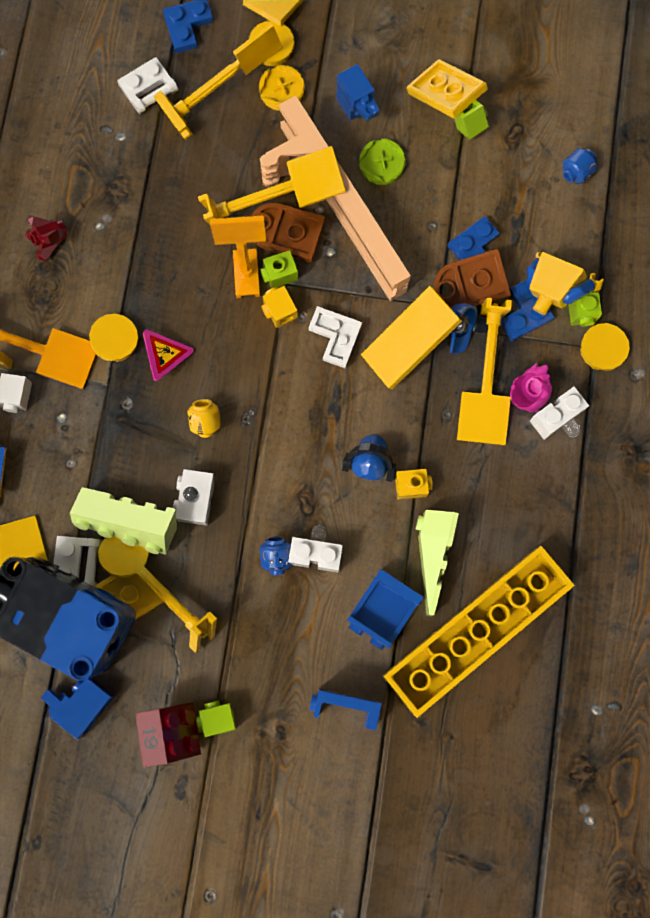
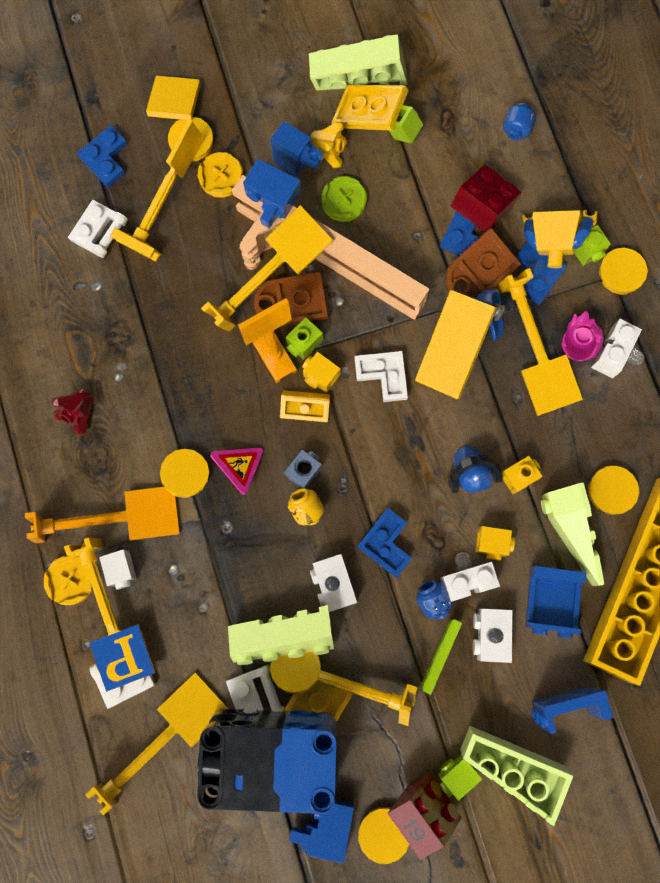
camera: 20 degrees left, 0 degrees up
(120, 737) = (380, 837): none -> yellow tile
(209, 381) = (296, 477): none -> sand blue brick
(250, 330) = (305, 406): none -> yellow slope
(253, 484) = (379, 544): none -> blue plate
(255, 607) = (440, 656): none -> lime tile
(271, 739) = (522, 773): none -> yellowish green wedge
(313, 611) = (494, 635): none -> white piece
(315, 120) = (274, 189): none -> blue hinge
(356, 532) = (494, 542): none -> yellow brick
(394, 105) = (330, 143): none -> yellow rock
(458, 45) = (359, 64): none -> yellowish green wedge
(490, 539) = (613, 490): none -> yellow tile
(509, 220) = (485, 198): none -> dark red brick

